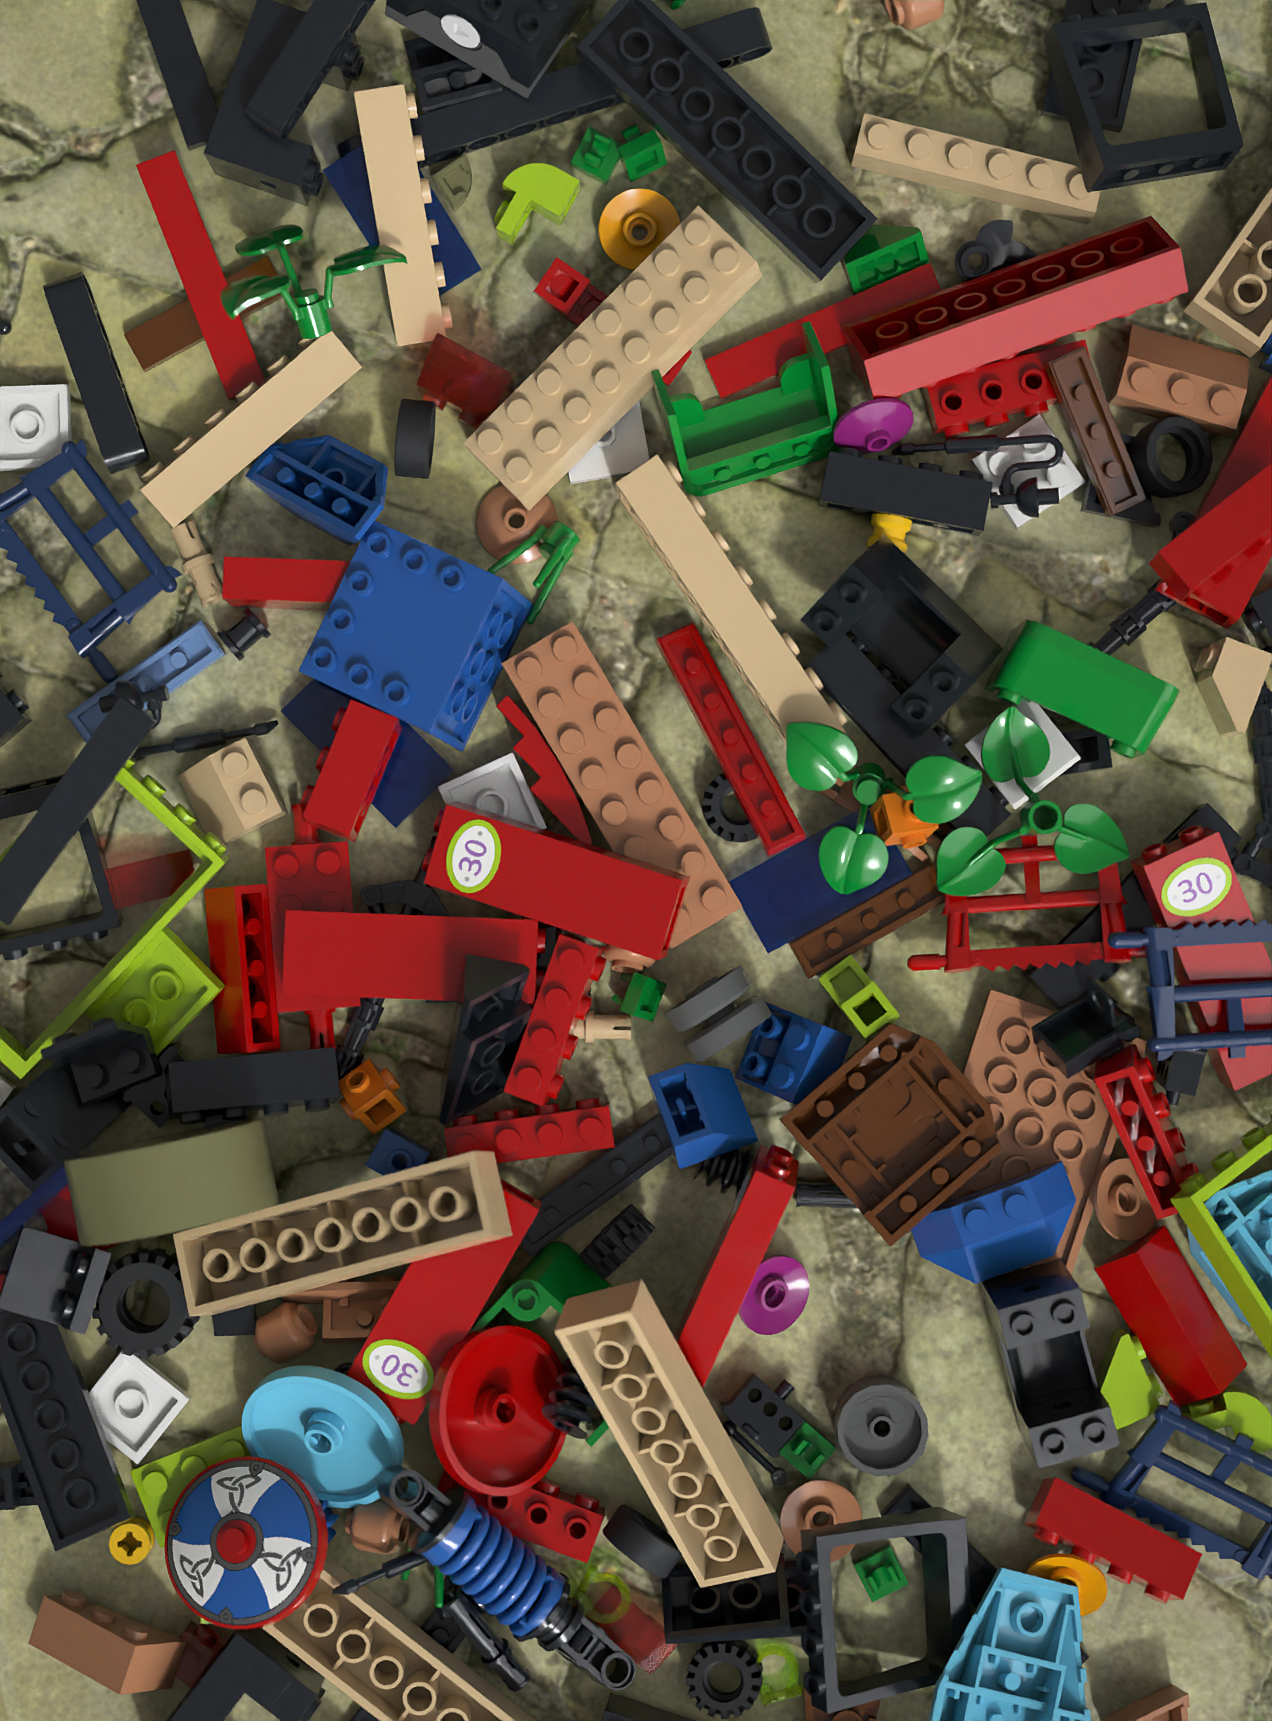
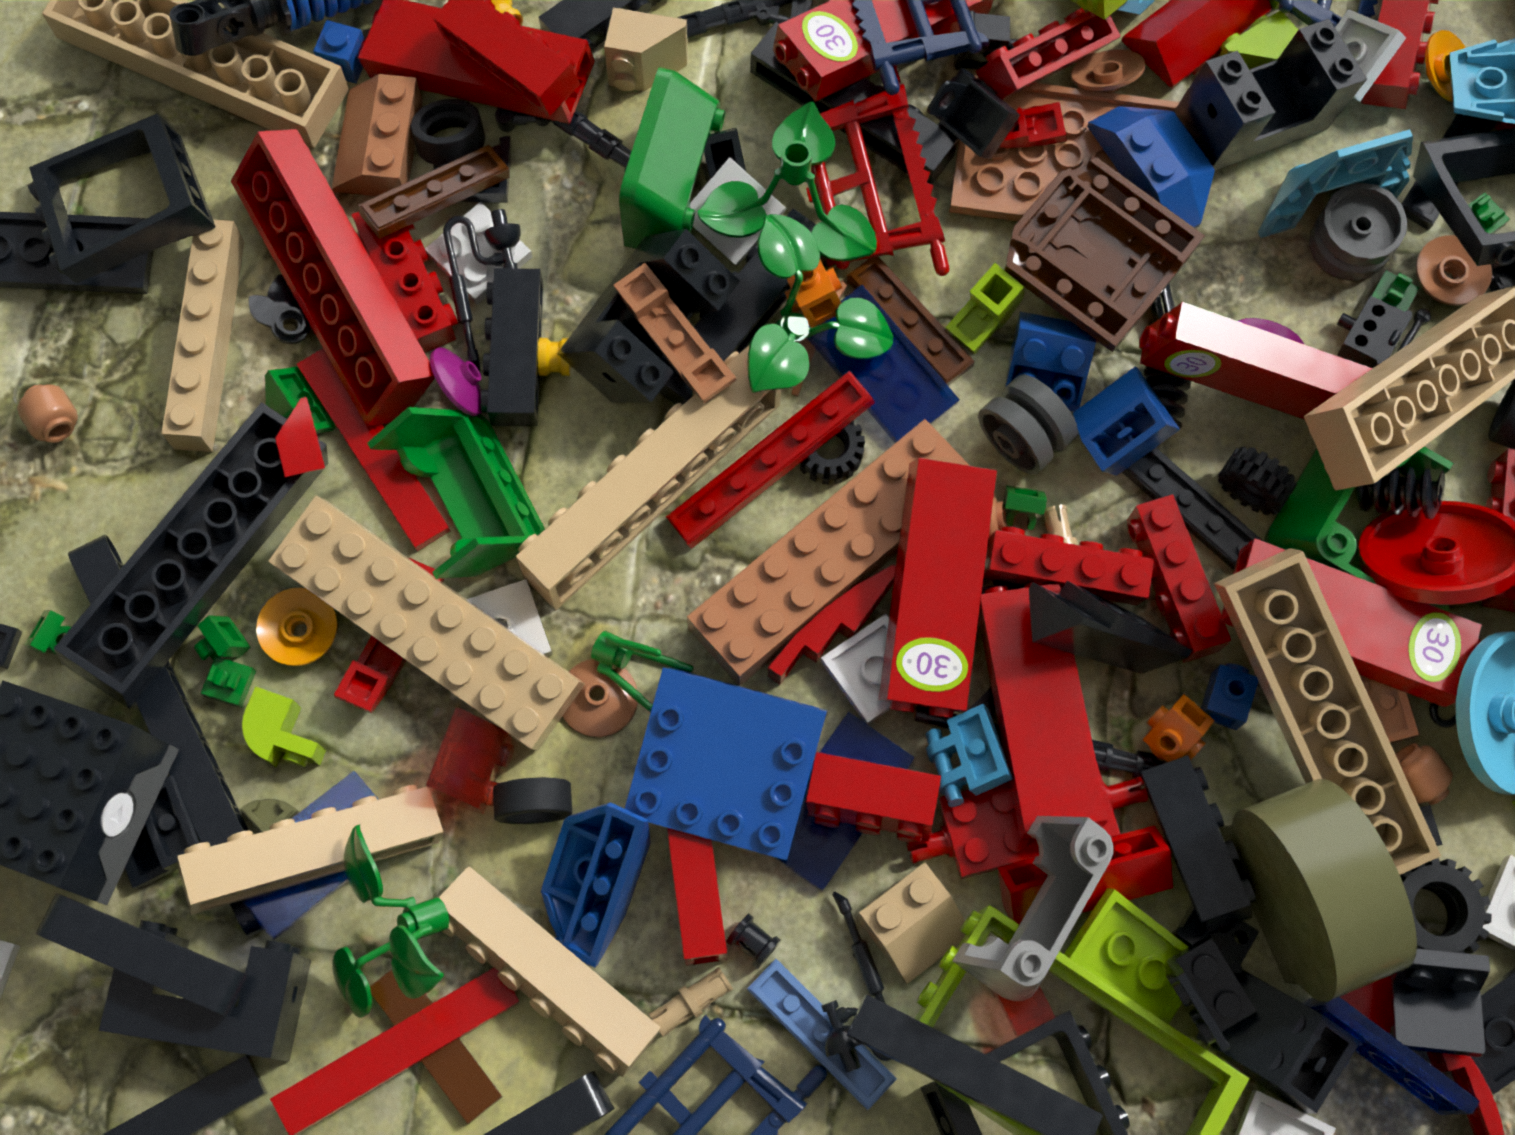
camera: 100 degrees left, 15 degrees down
(152, 871) = (1074, 858): none -> light grey windscreen
(379, 886) = (979, 752): none -> dark azure plate
(822, 251) = (299, 442): none -> red slope
(870, 656) = (673, 334): none -> nougat slope
(942, 1408) = (1372, 162): none -> medium azure wedge
(1066, 1103) = (1037, 127): none -> red slope
(1092, 1484) = (1370, 44): none -> white plate

